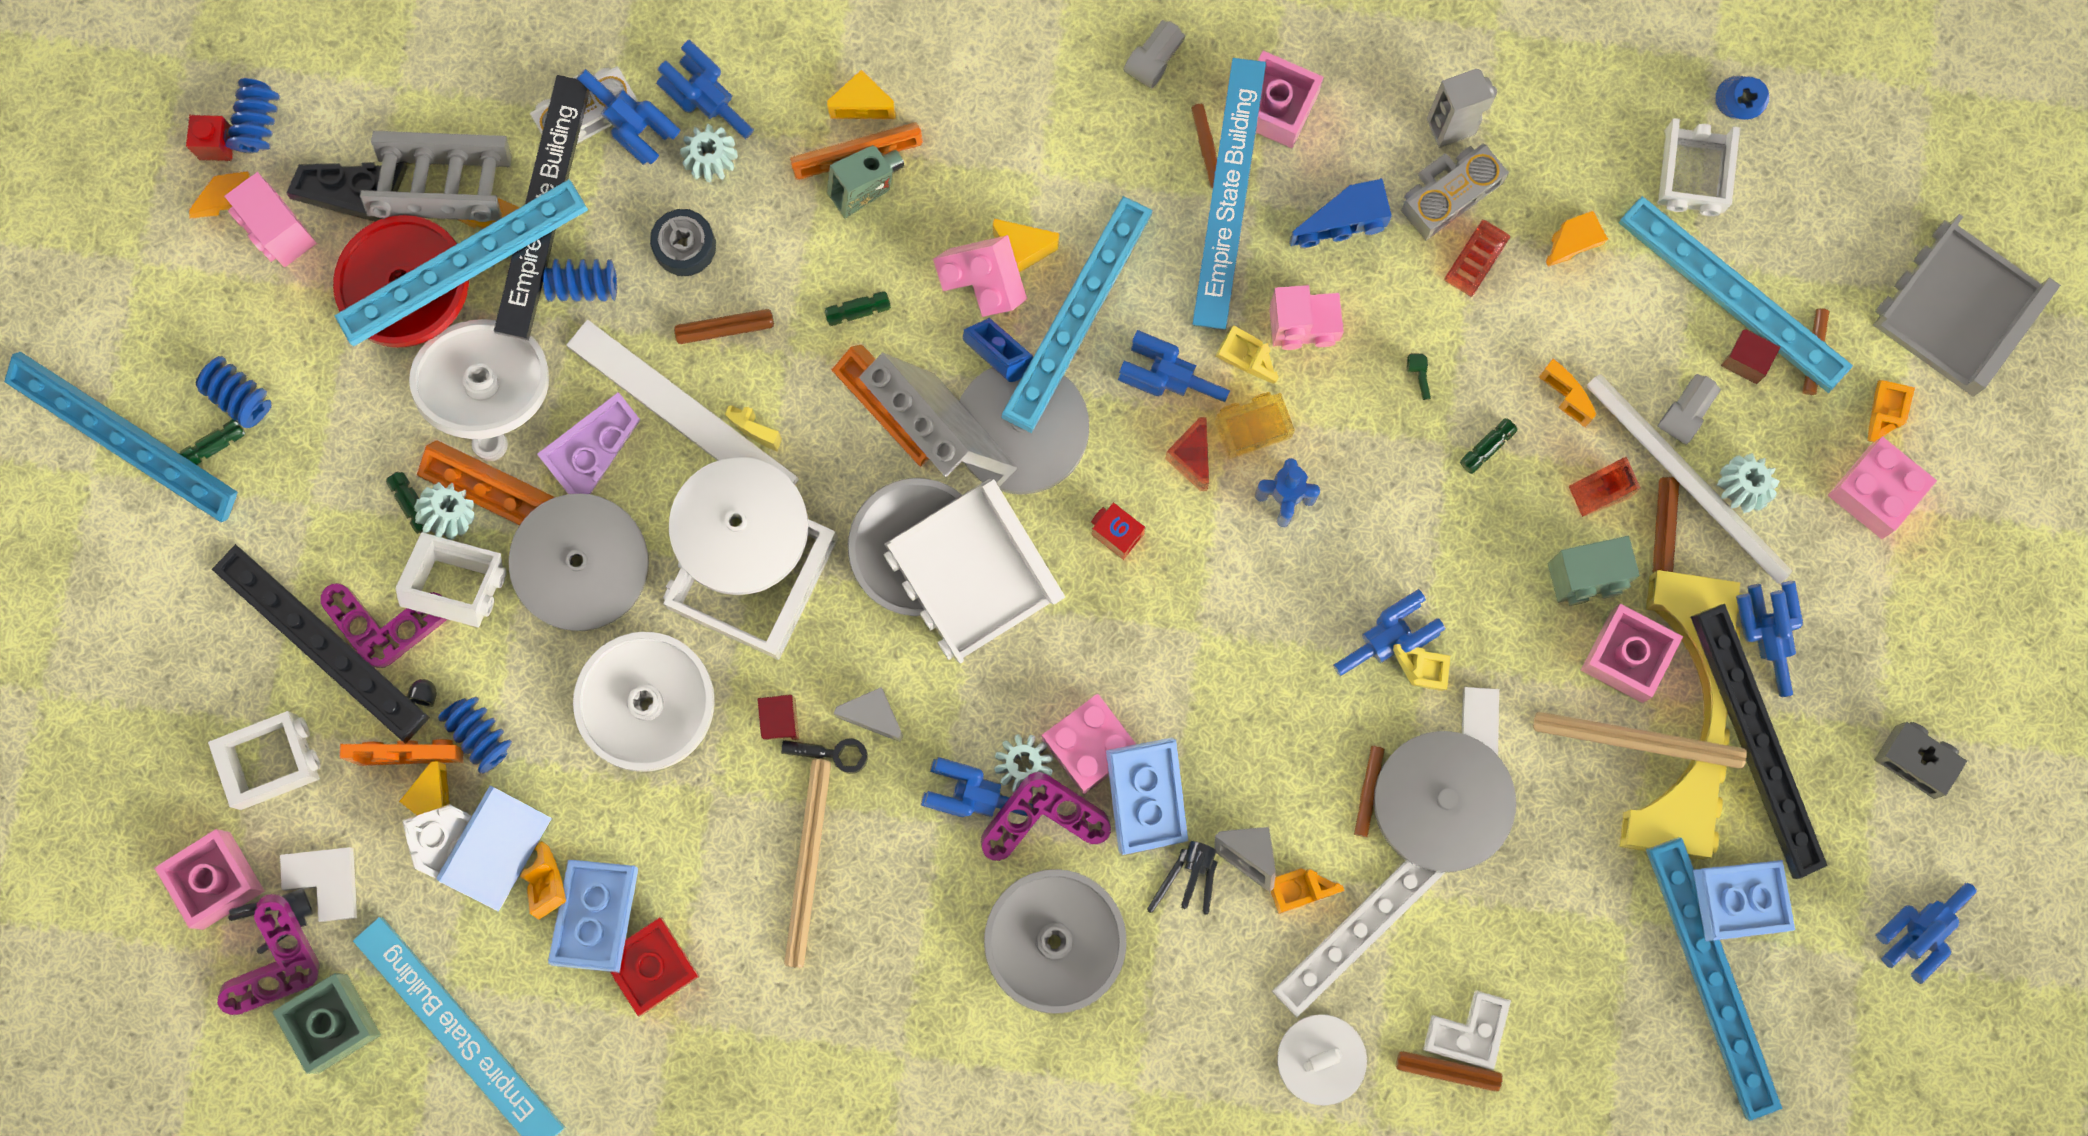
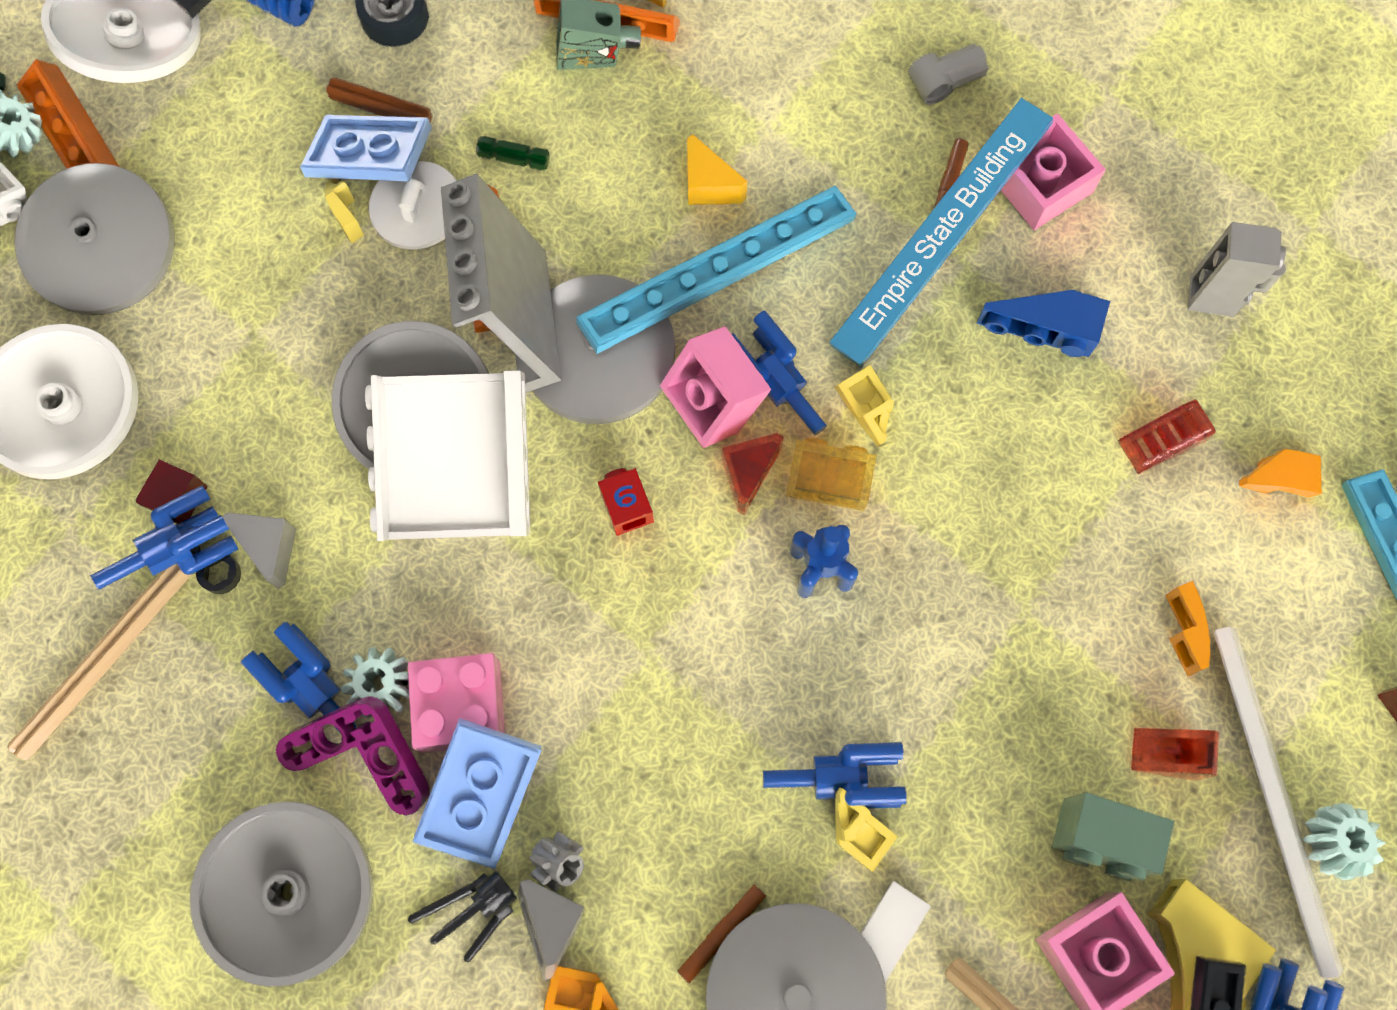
camera: 30 degrees right, 5 degrees down
(490, 448) = (98, 94): white tile -> none
(590, 446) = (182, 141): lavender wing -> none
(664, 397) = (285, 155): white tile -> none
(743, 556) = (254, 283): white dish -> none
(744, 369) = (366, 147): none -> light blue tile
(791, 612) = (271, 386): white window -> none
(810, 393) = (411, 211): none -> white shield
(813, 750) = (171, 543): none -> blue plant
(990, 270) = (655, 179): bright pink brick -> none
(998, 349) = (617, 257): blue brick -> none
(1134, 409) = (714, 386): none -> bright pink brick
(1229, 809) = (557, 861): none -> light grey gear
(1304, 318) = (946, 396): bright pink brick -> none
(1419, 363) = (1041, 508): dark green hand -> none
(1466, 184) = (1180, 359): light grey piece -> none
(1488, 445) = (1069, 635): dark green axle -> none
(1666, 524) = (1222, 833): dark orange axle -> none
(1686, 414) = (1310, 726): light grey piece -> none

